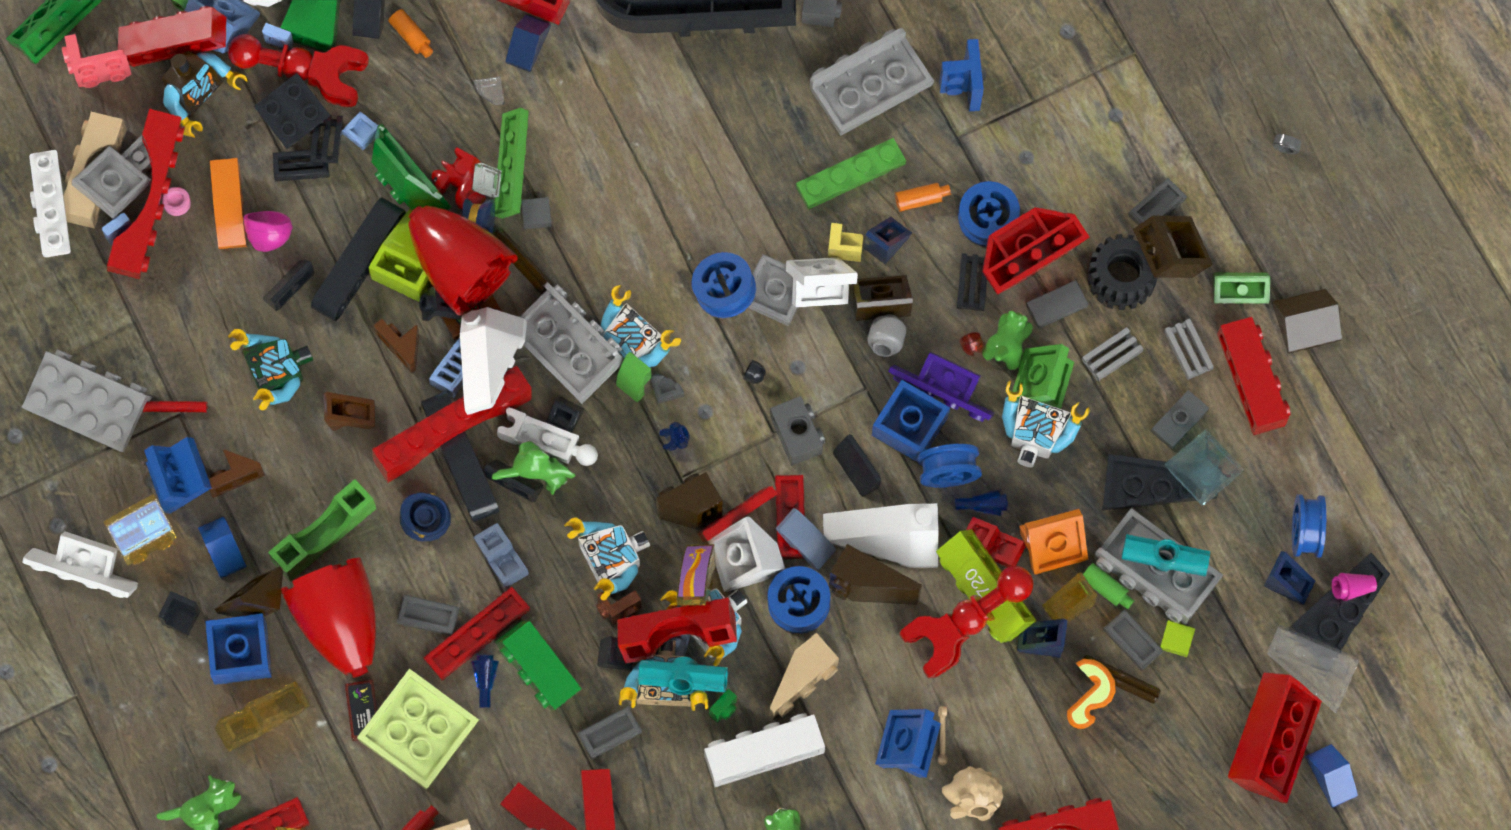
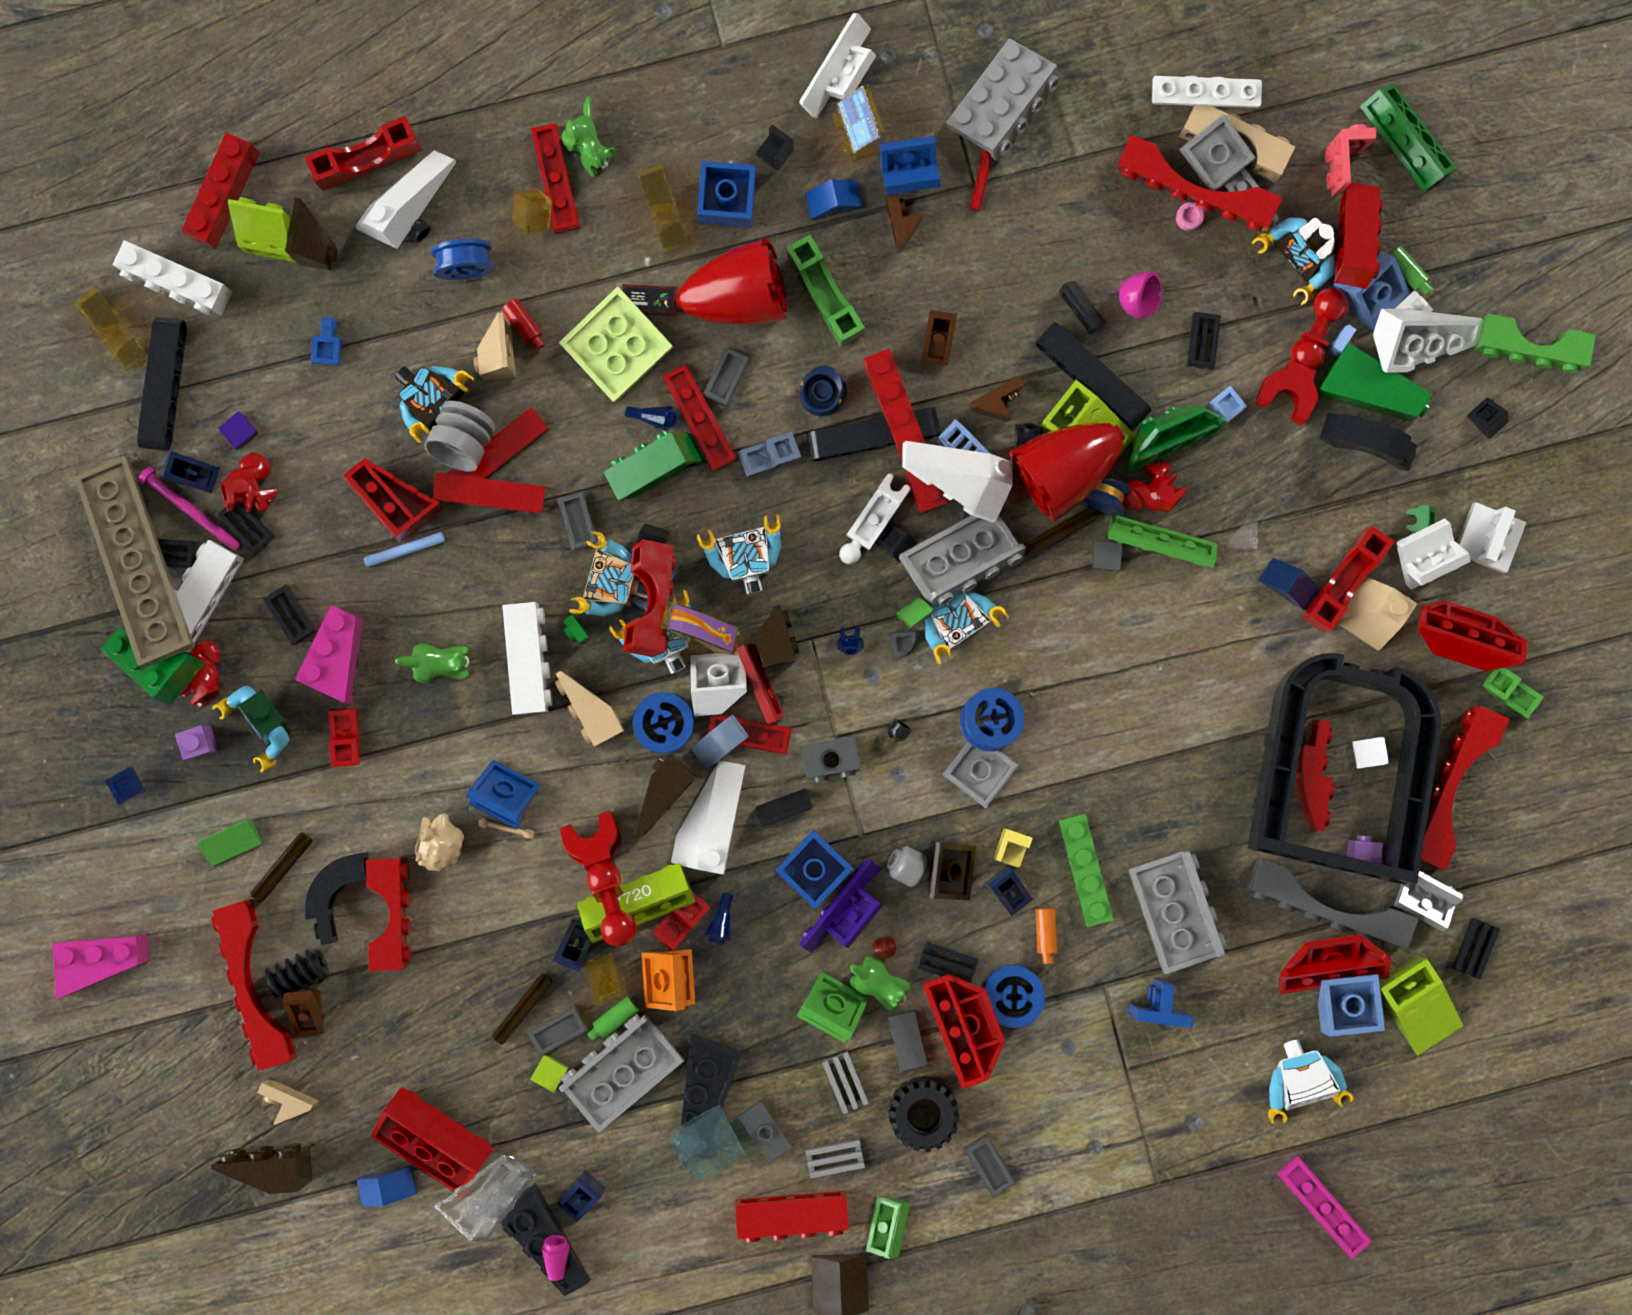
camera: 100 degrees right, 15 degrees up
(116, 227) = (1171, 153): light blue tile -> none
(228, 203) = (1177, 262): orange slope -> none
(257, 596) = (772, 216): dark brown slope -> none
(272, 365) = (999, 275): torso -> none
(292, 111) = (1258, 339): black hinge -> none
(324, 158) = (1242, 374): black tile -> none
(410, 33) = (1320, 471): orange cylinder -> none
(486, 180) = (1148, 513): clear tile -> none
(522, 486) = (841, 481): black slope -> none
(535, 464) = (845, 501): bright green animal -> none
(623, 608) = (690, 559): copper bracket -> none
(683, 675) = (602, 594): teal piece -> none
(820, 281) = (977, 814): white bracket -> none
(949, 465) = (759, 895): blue wheel -> none
(1038, 427) = (784, 991): torso -> none
(1097, 697) = (503, 979): animal -> none
(1147, 551) = (616, 1098): teal piece -> none
(1164, 261) = (921, 1158): dark brown window -> none
(1309, 526) = (624, 1230): blue wheel -> none

